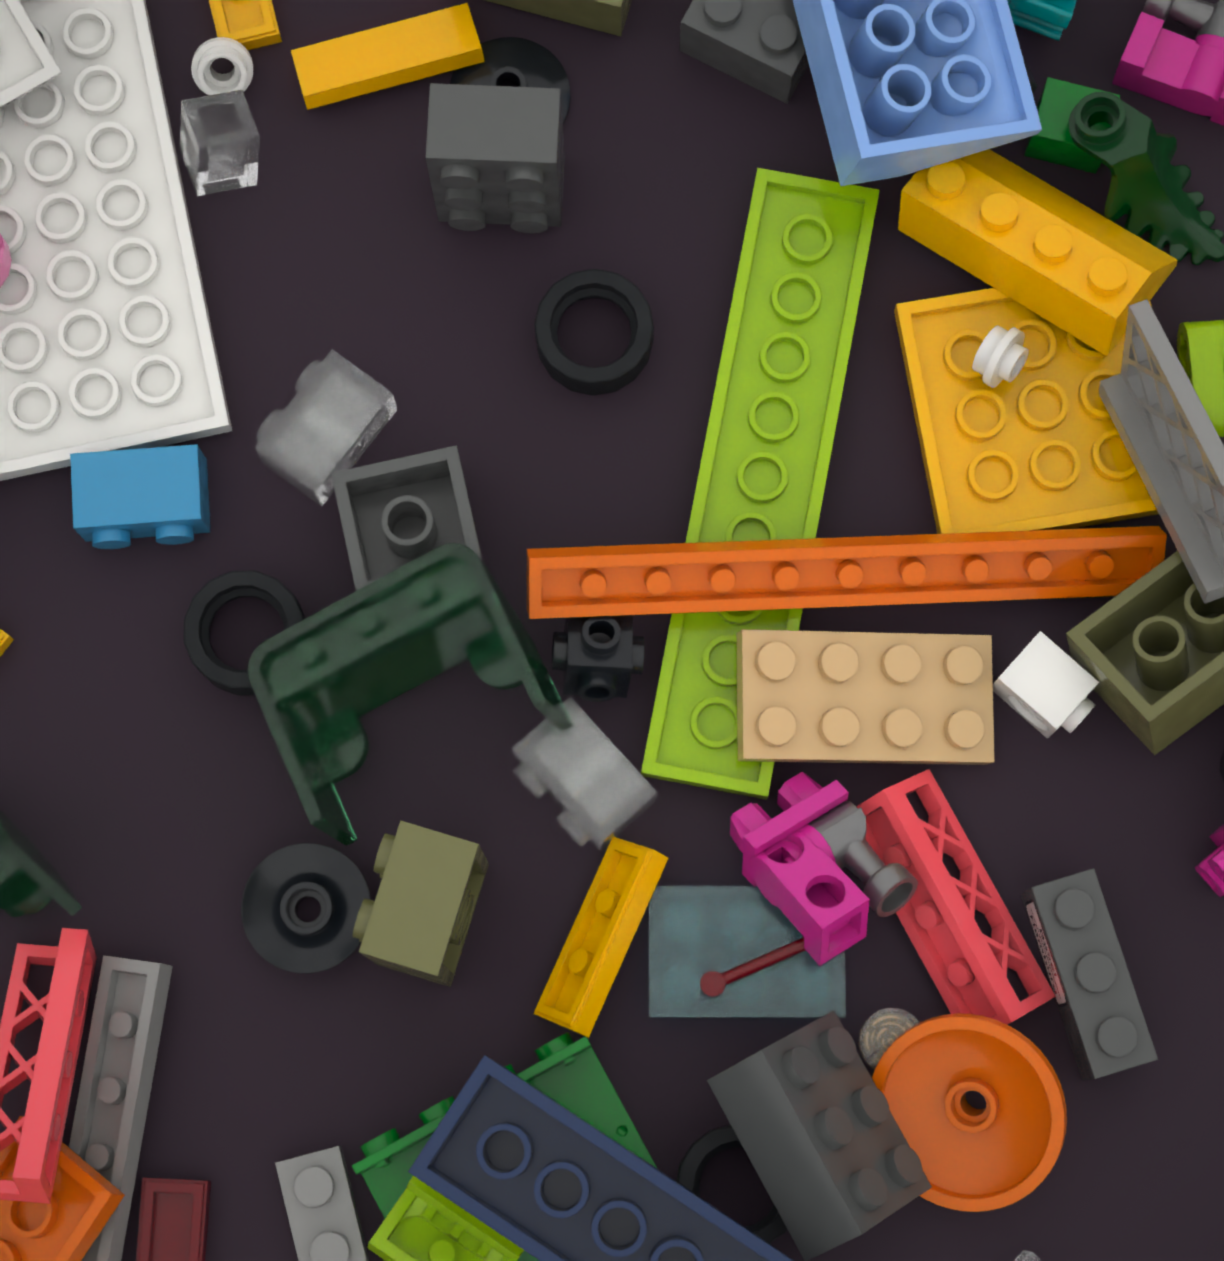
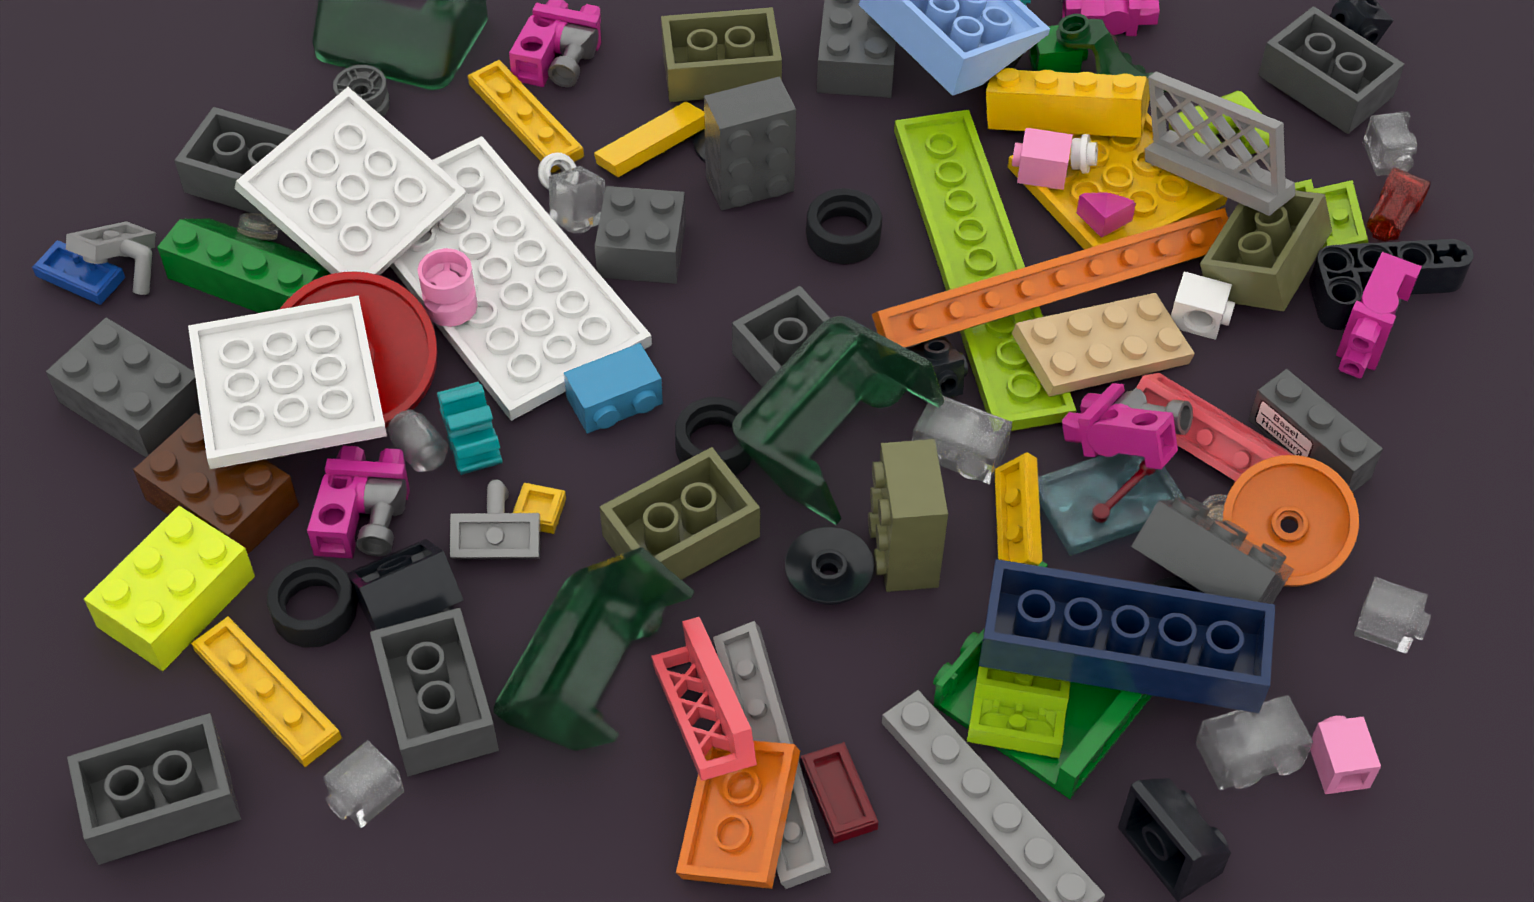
camera: 25 degrees left, 25 degrees down
(129, 763) = (684, 515): none -> olive brick
(289, 237) = (640, 234): none -> dark grey brick
(324, 425) = (707, 319): clear brick -> none
(933, 341) = (1042, 158): none -> bright pink brick
(982, 471) = (1105, 211): none -> dark pink slope

